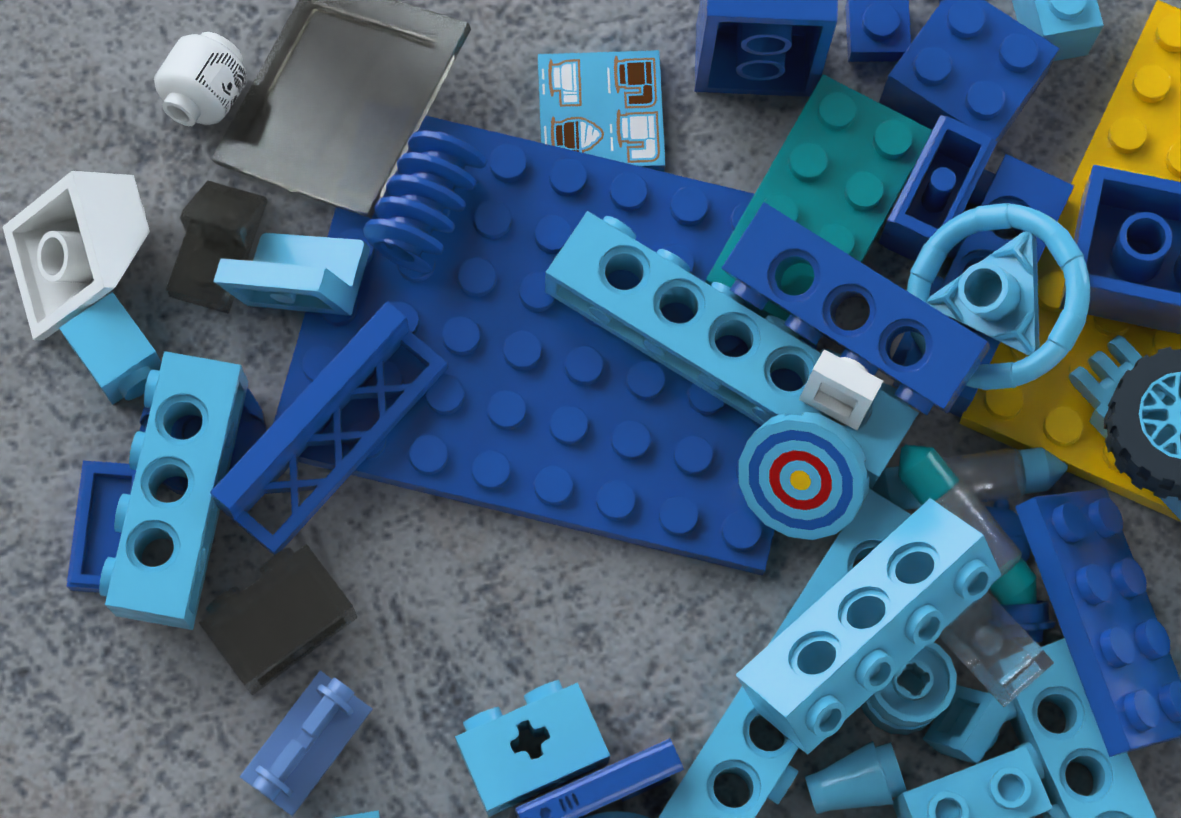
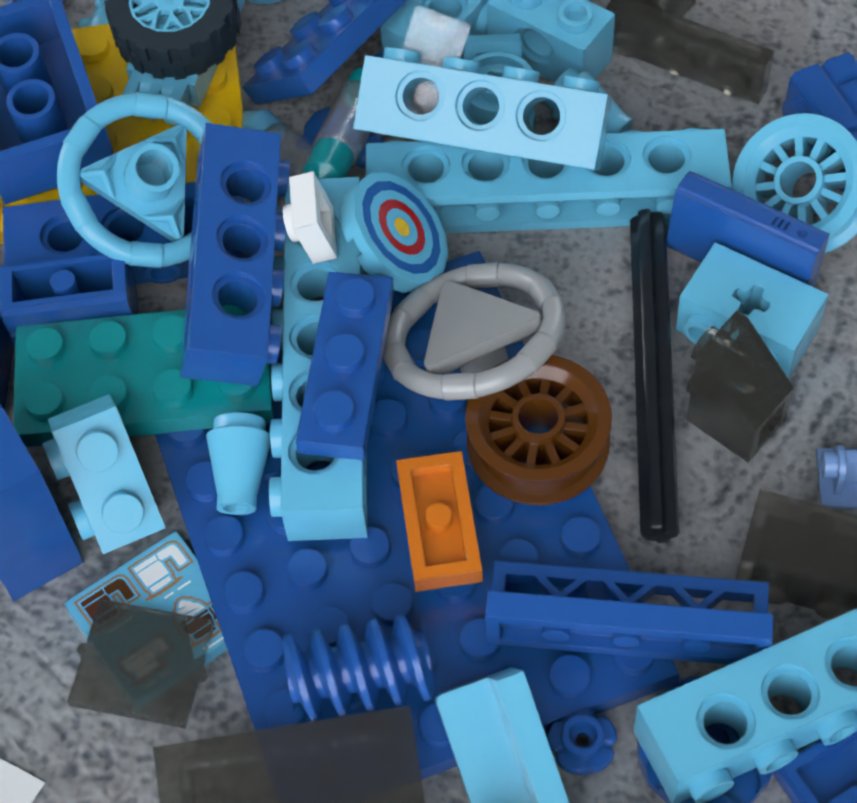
camera: 115 degrees left, 15 degrees down
(253, 343) = (582, 759): none -> blue plate
(457, 664) = (737, 387): none -> clear smoke slope
(494, 432) = (557, 397): none -> reddish brown wheel
(509, 341) = (439, 521): none -> orange plate
(544, 634) = (653, 379): none -> black axle
(563, 75) = (142, 663): none -> clear smoke piece
(655, 472) = (474, 330): none -> light grey piece
(674, 224) = (238, 458): none -> medium azure cone
(682, 336) = (345, 366): none -> blue plate
(732, 118) = (111, 486): none -> medium azure brick

